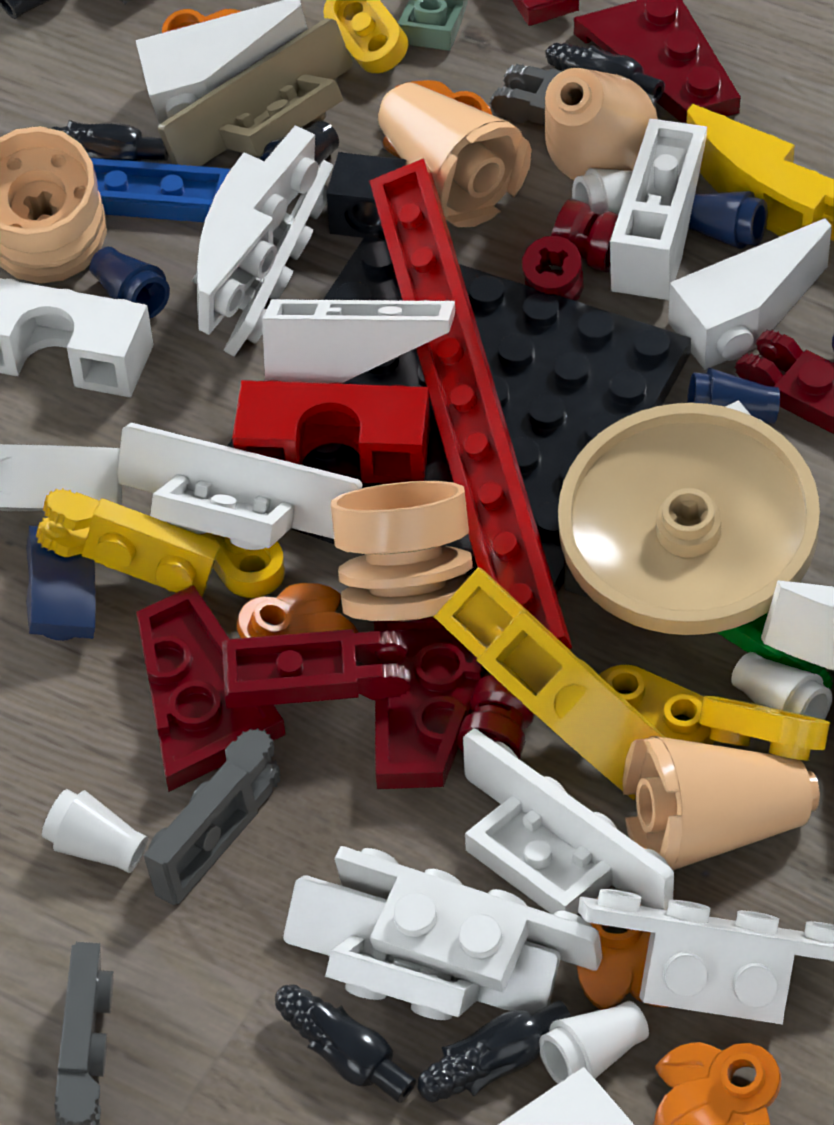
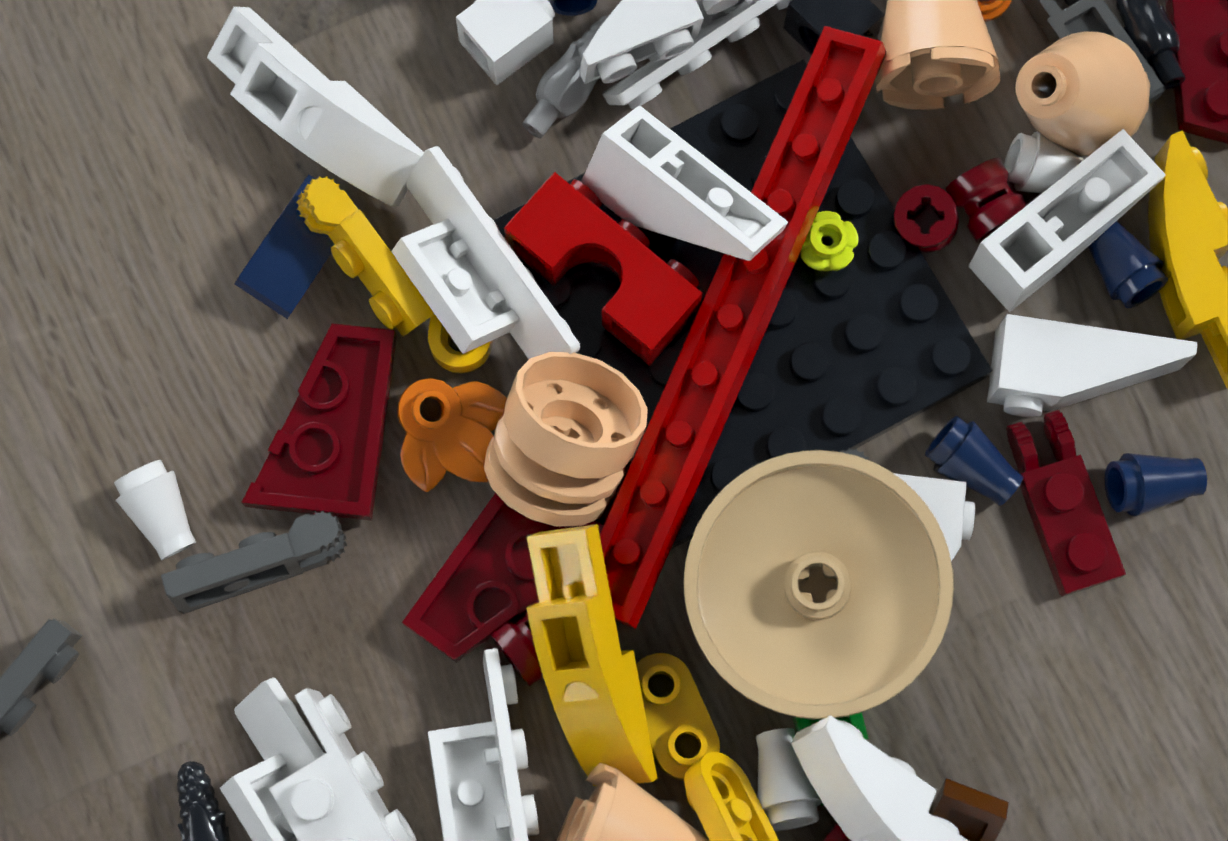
camera: 30 degrees right, 25 degrees up
(190, 353) = (561, 87): none -> light grey piece
(314, 667) = (412, 490): dark red hinge -> none
(496, 321) = (831, 257): none -> neon yellow plate

